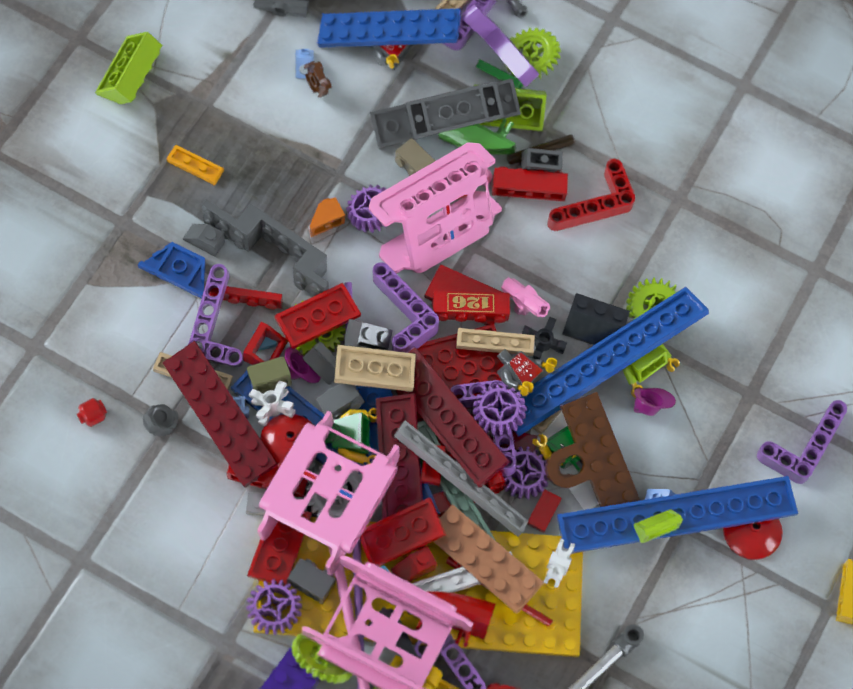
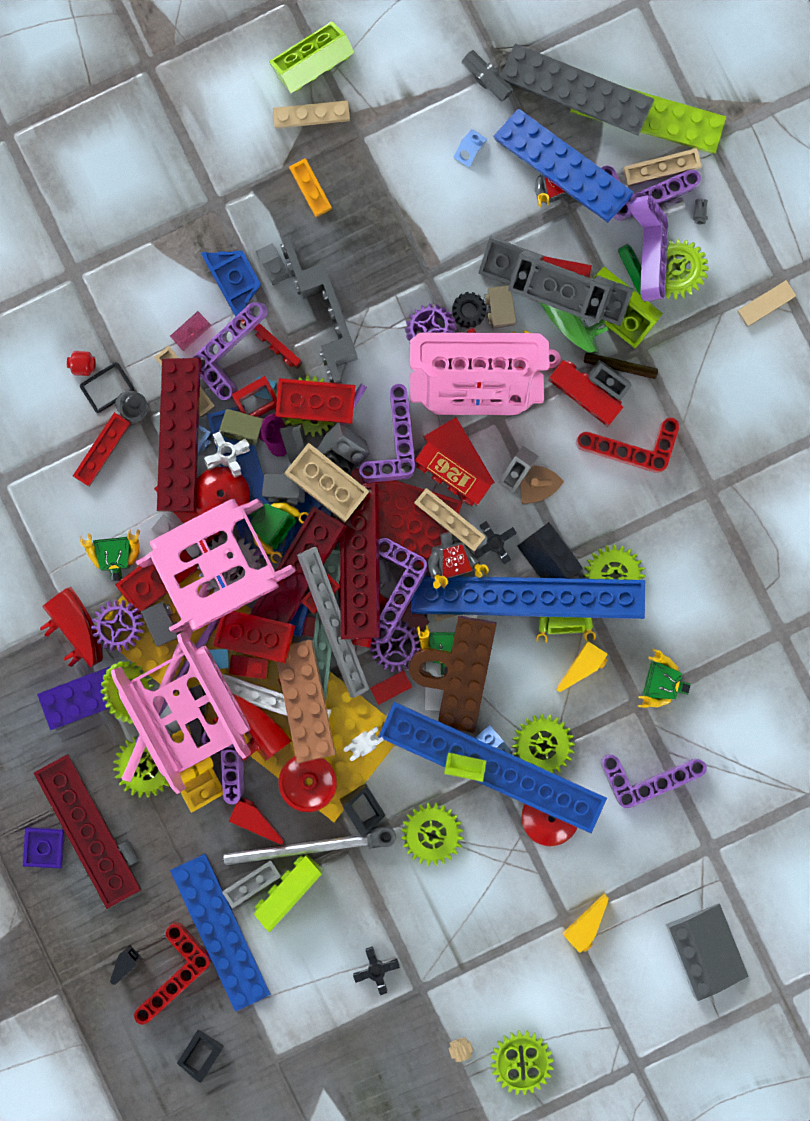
camera: 45 degrees right, 20 degrees up
(112, 415) = (99, 374): none -> black piece
(157, 111) = (311, 114): none -> tan plate
(157, 473) = (101, 449): none -> red plate
(169, 331) = (190, 330): none -> clear pink plate
(226, 551) = (113, 553): none -> torso
(230, 628) = (75, 623): none -> red piece
(317, 79) = (465, 173): reddish brown plate -> none
(327, 216) = (388, 310): orange slope -> none
(386, 169) = (477, 302): none -> black tyre
(495, 13) = (673, 206): none -> light grey pin
(516, 408) = (398, 594): medium lavender gear -> none
(520, 267) = (518, 469): none -> light grey slope
(525, 298) = (501, 499): bright pink piece -> none
(542, 276) = (539, 484): none -> medium nougat shield
(546, 619) = (302, 795): none -> red dish
(592, 634) = (347, 801): none -> black tile
(616, 41) = (766, 303): none -> tan tile
(650, 613) = (449, 842): none -> lime gear
(652, 400) = (548, 656): magenta piece -> none
(687, 383) = (586, 663): none -> yellow slope
(711, 464) = (556, 730): none -> lime gear
(757, 361) = (662, 682): none -> torso

